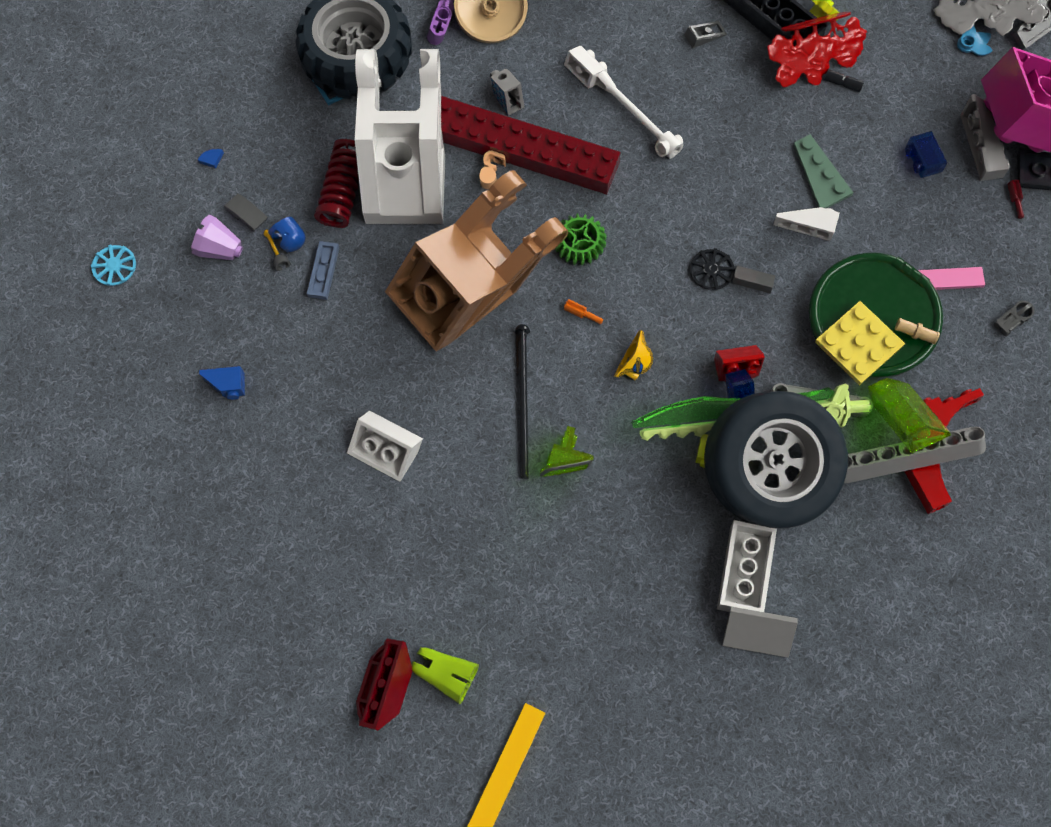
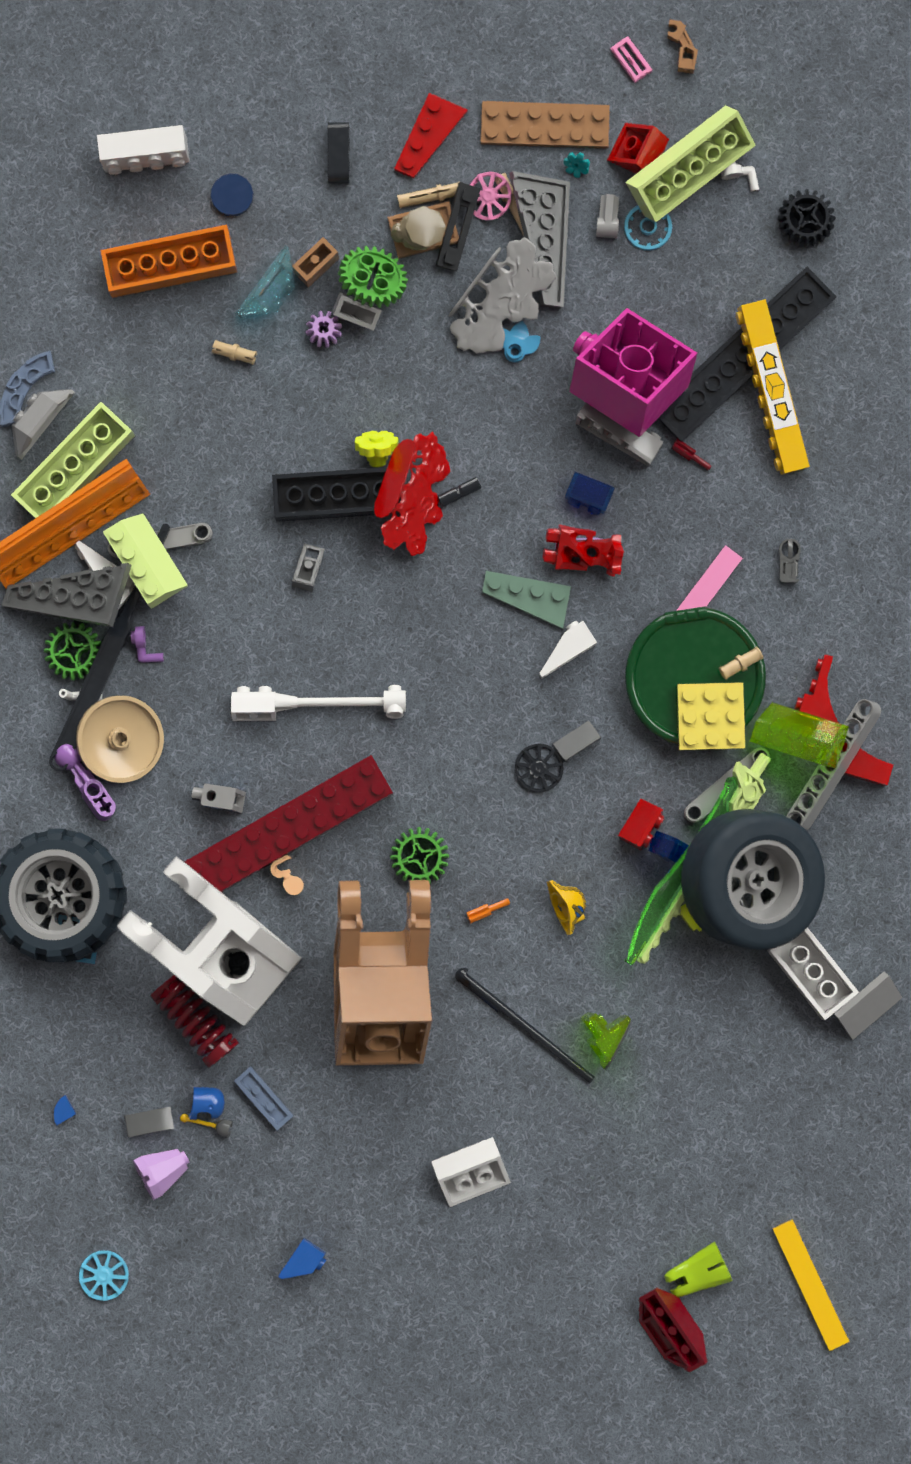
camera: 50 degrees left, 15 degrees up
(878, 167) = (608, 550): none -> red hips

